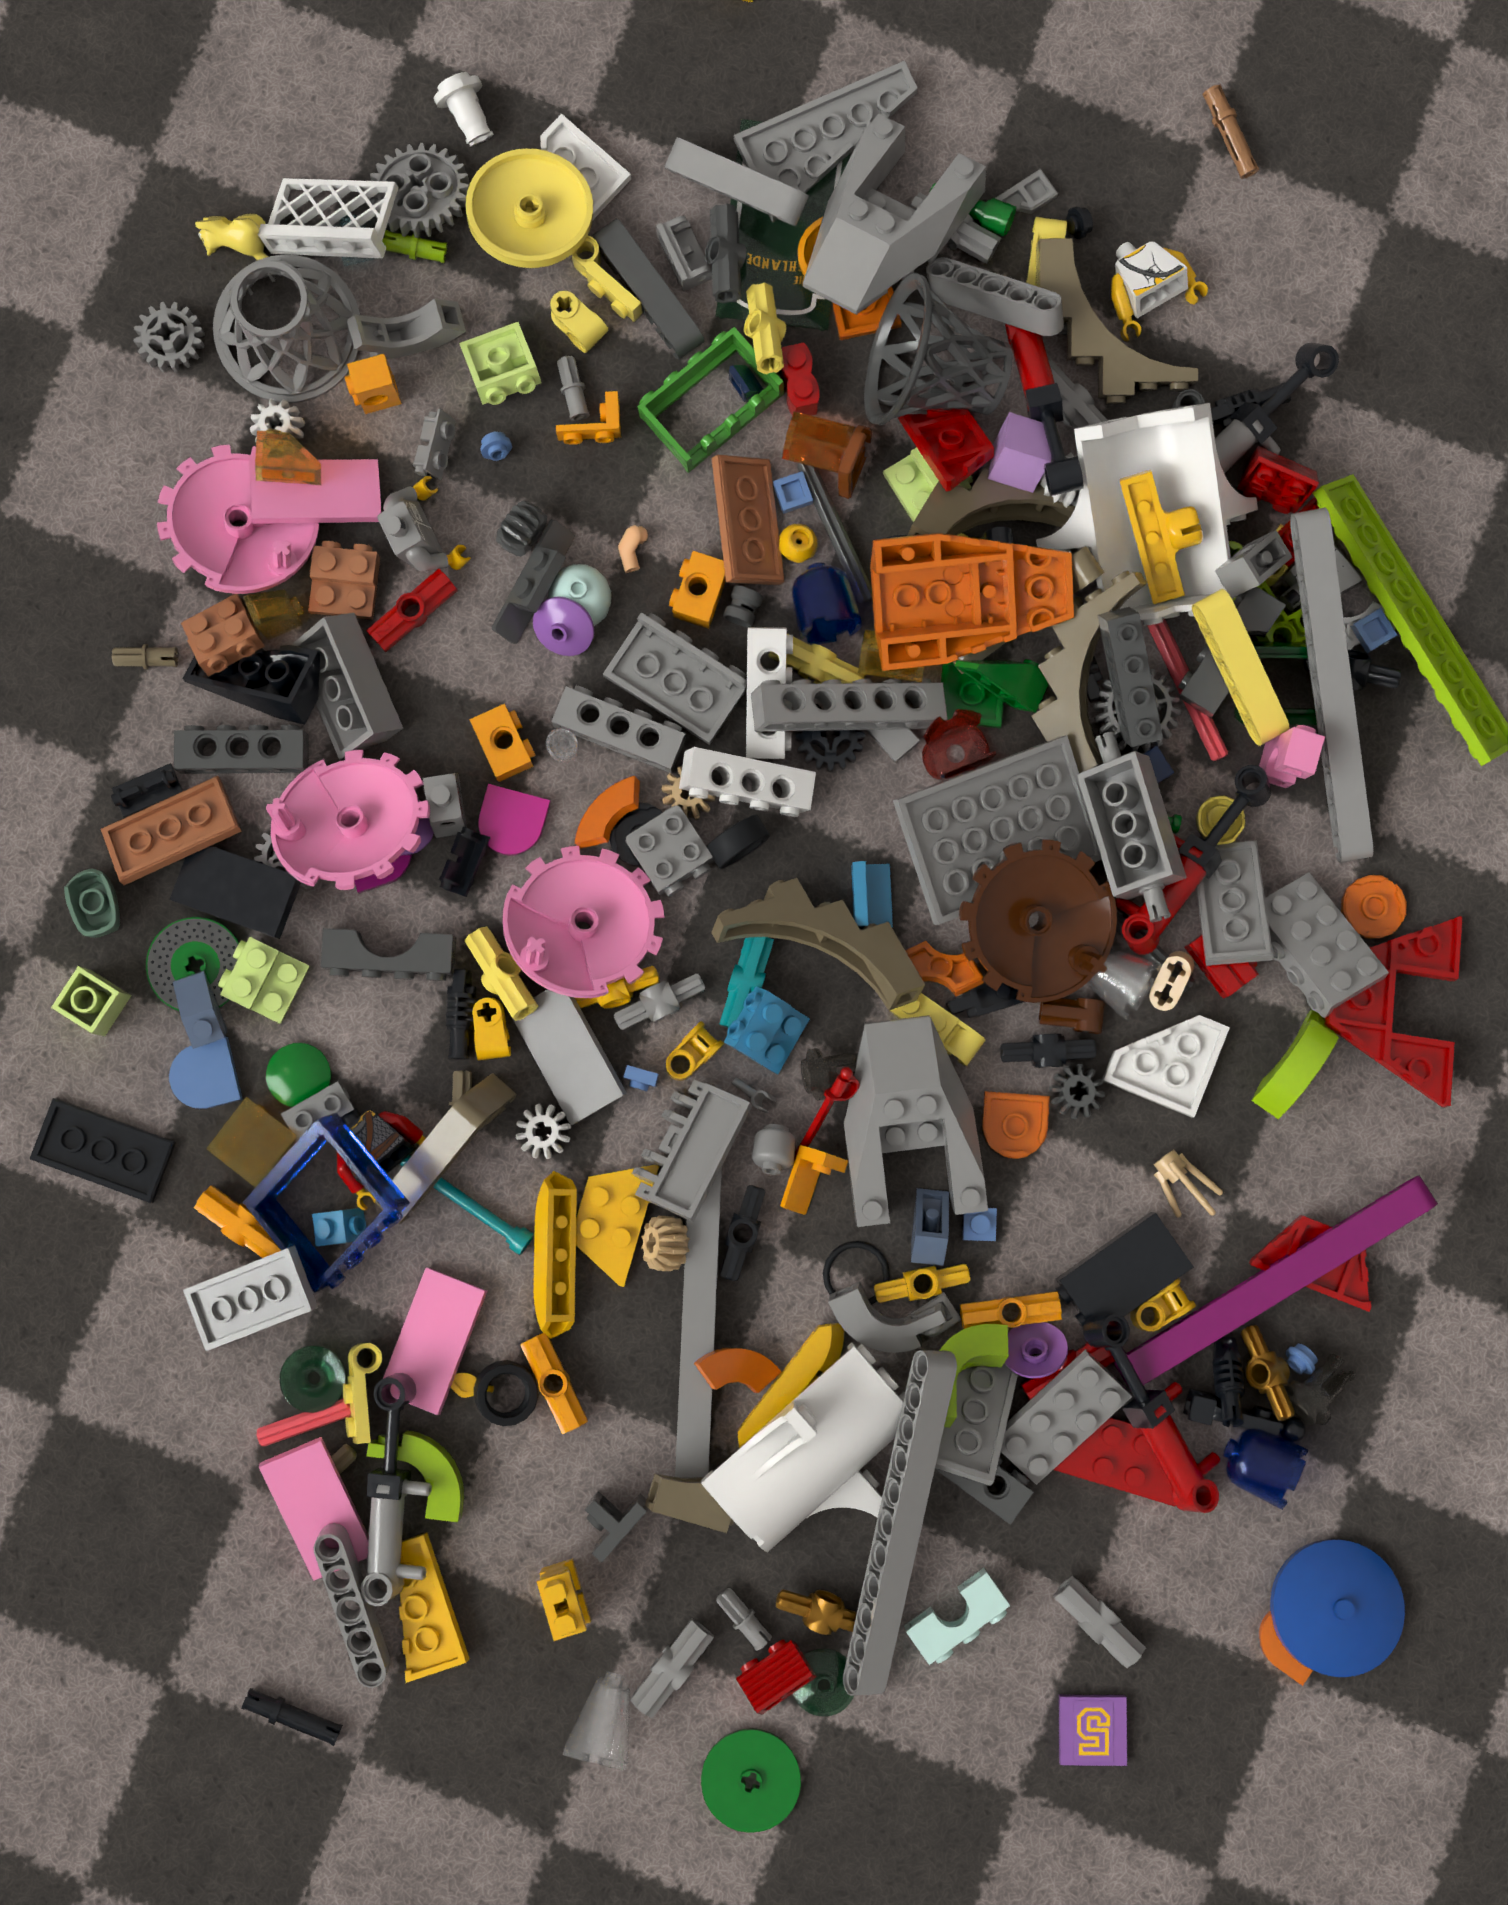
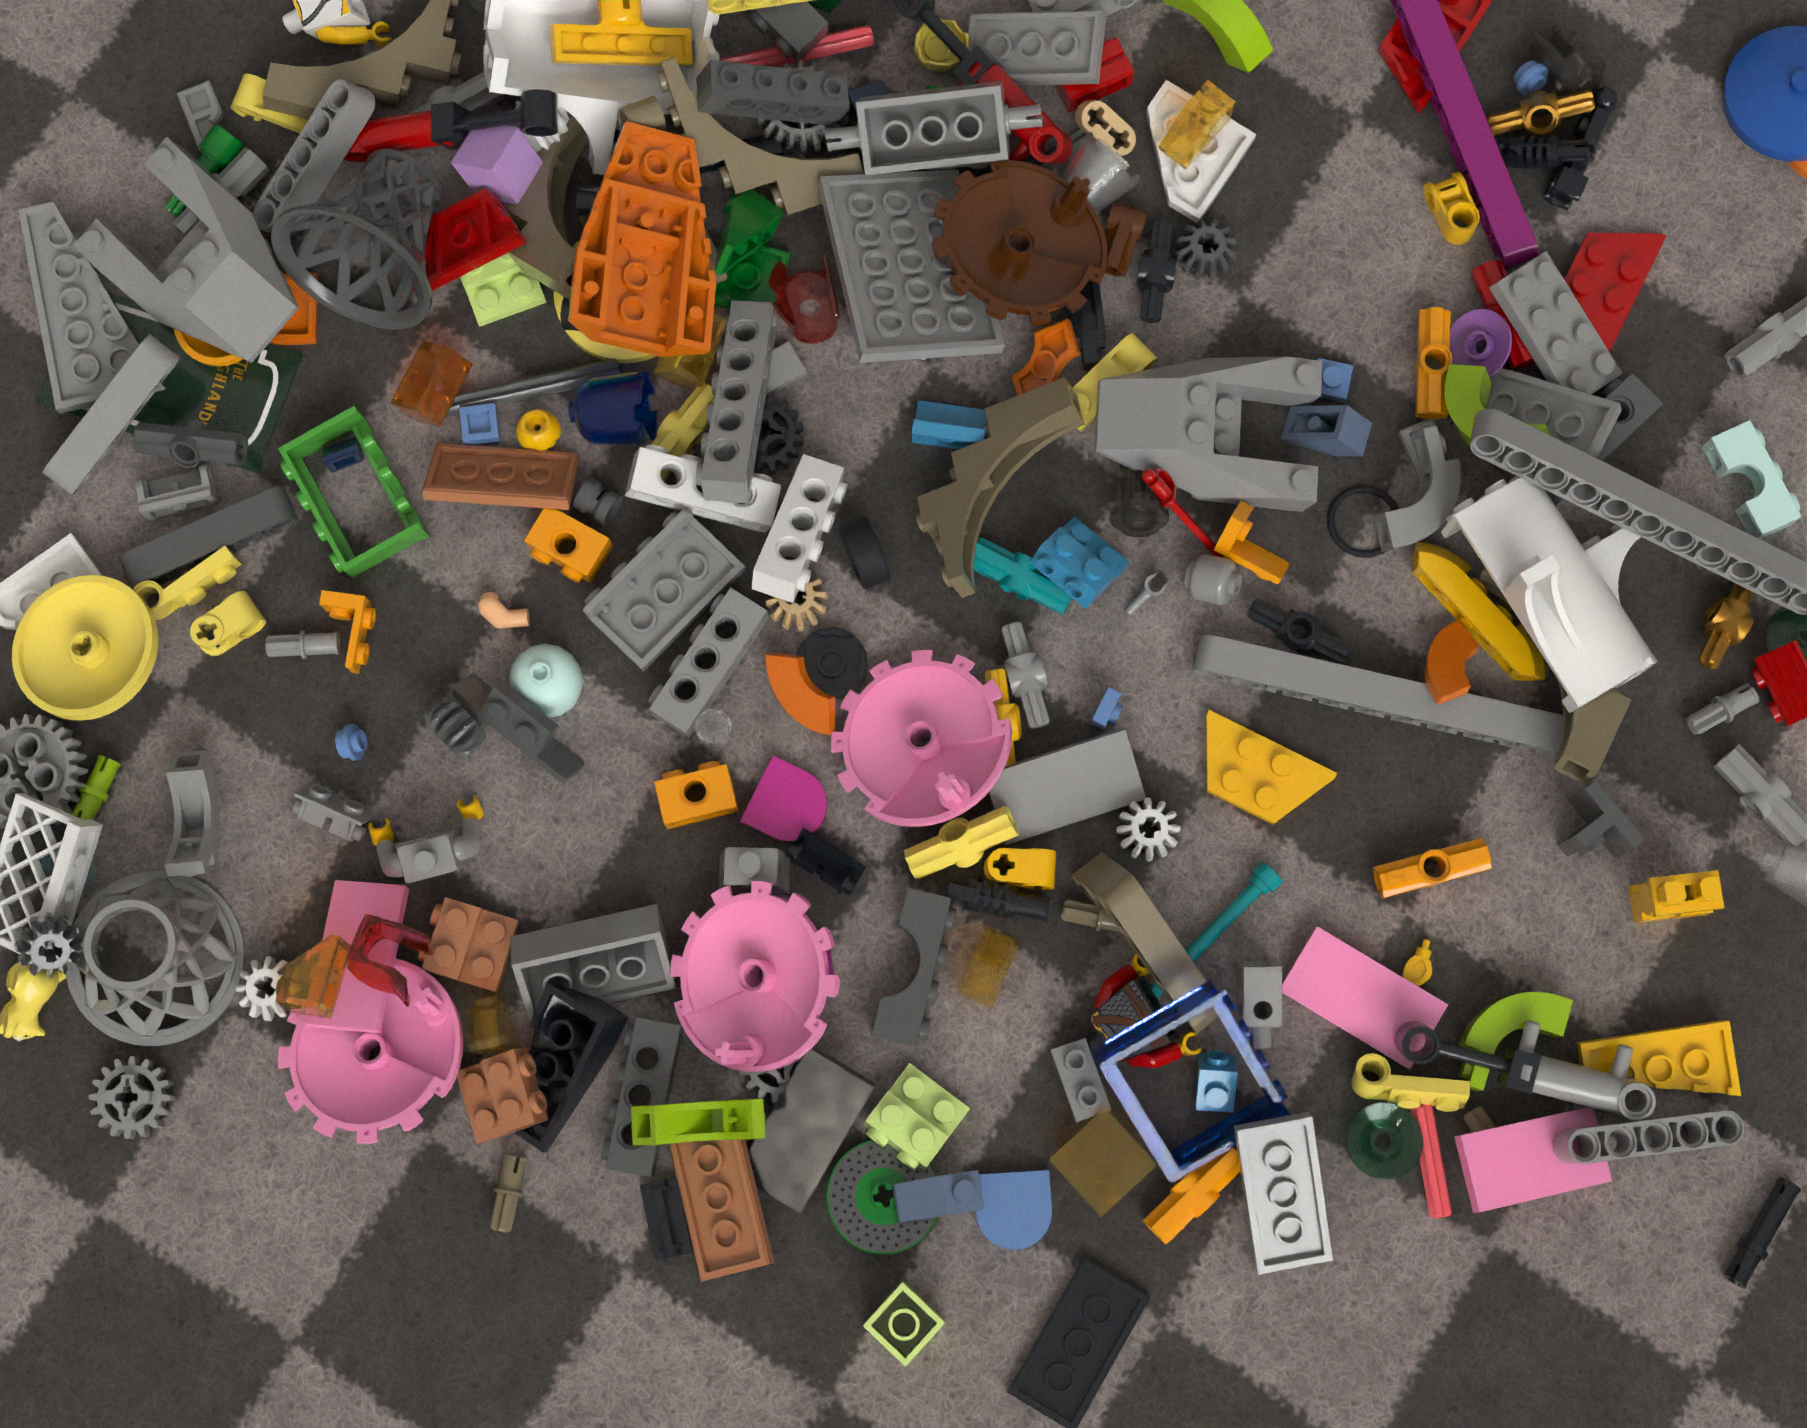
camera: 75 degrees left, 5 degrees down
(92, 903) = (788, 1301): sand green piece -> none
(222, 796) = (698, 1121): none -> lime arch
(272, 237) = (34, 940): none -> dark grey gear
(297, 1073) = (1031, 1099): green dish -> none
(298, 492) = (375, 974): none -> clear red piece
(372, 384) = (248, 864): light orange brick -> none
(399, 1017) = (988, 968): none -> clear yellow slope
(412, 1250) = (1256, 983): none -> light grey torso
(427, 595) = (533, 890): red piece -> none
(501, 364) = (256, 718): yellowish green plate -> none
(525, 1408) = (1454, 905): black tyre -> none
(555, 1254) = (1289, 839): yellow brick -> none
(570, 619) = (568, 693): medium lavender dish -> none
(665, 1243) = (1298, 714): tan gear -> none
(670, 851) = (859, 628): light grey bracket -> none
(693, 1151) = (1201, 661): light grey hinge -> none
(694, 1051) = (1086, 643): yellow piece -> none
(764, 328) = (288, 413): light yellow piece -> none
(799, 380) = (365, 389): red brick -> none
(853, 461) = (469, 350): dark orange tile -> none
(939, 1280) = (1386, 467): yellow axle -> none
(1015, 1123) = (1228, 322): orange tile -> none
(1079, 222) = (247, 61): black plate -> none
(1124, 1271) = (1411, 239): black brick -> none
(1151, 1413) = (1569, 233): piece -> none
(1173, 1168) = (1306, 165): tan plant -> none
(1187, 1061) = (1197, 124): none -> clear yellow slope
(1264, 1465) = (1639, 131): clear blue cylinder -> none

